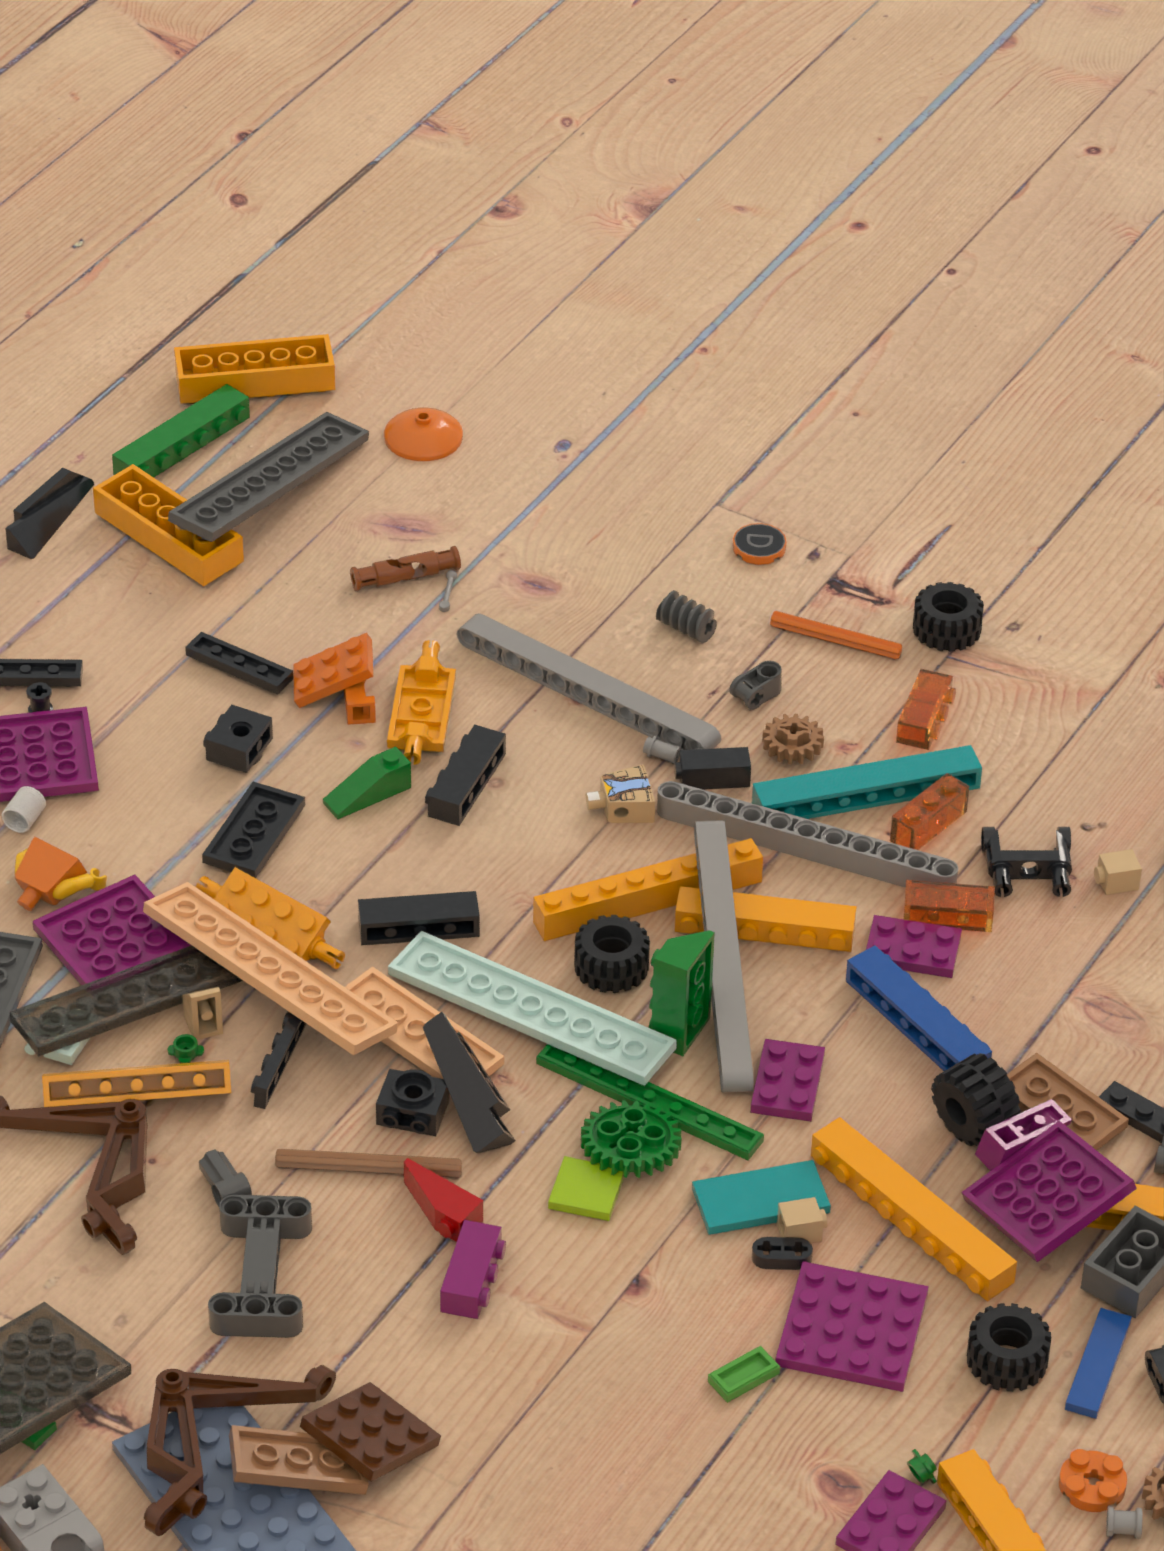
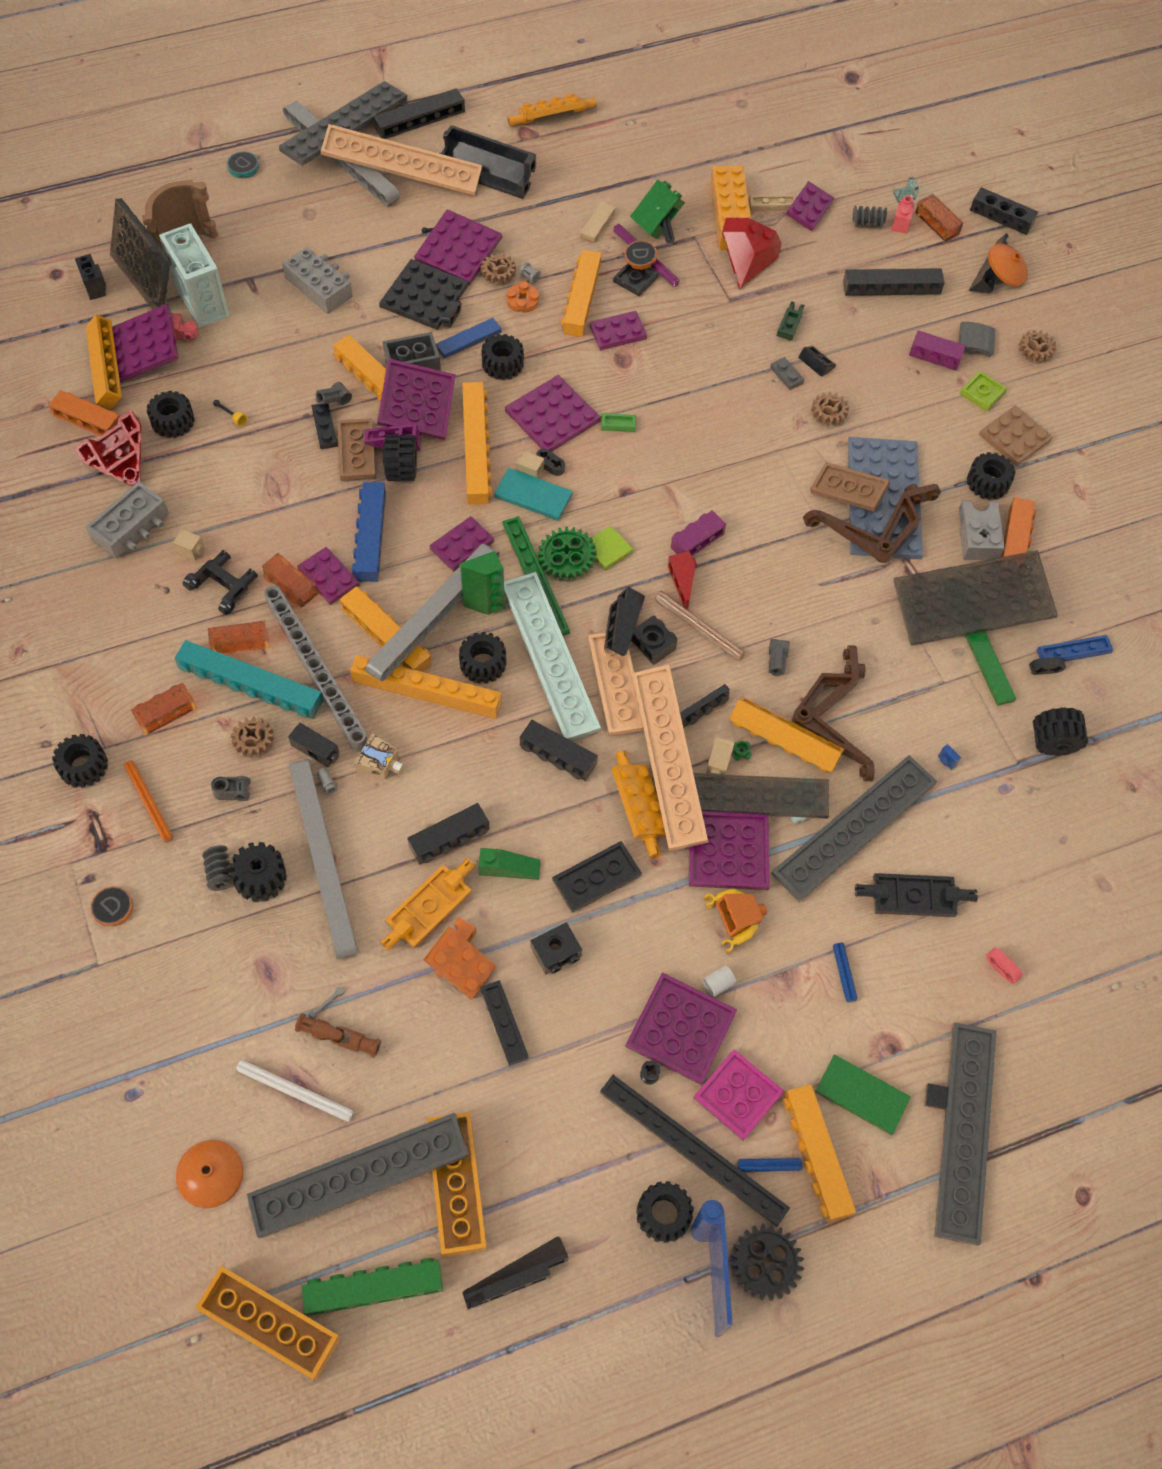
camera: 145 degrees left, 20 degrees up
(257, 1308) = (794, 598): dark grey beam -> none
(370, 1431) = (805, 486): reddish brown plate -> none
(405, 517) = (295, 1090): none -> white axle
(636, 629) = (258, 871): none -> black wheel
(922, 1467) = (586, 337): green plate -> none

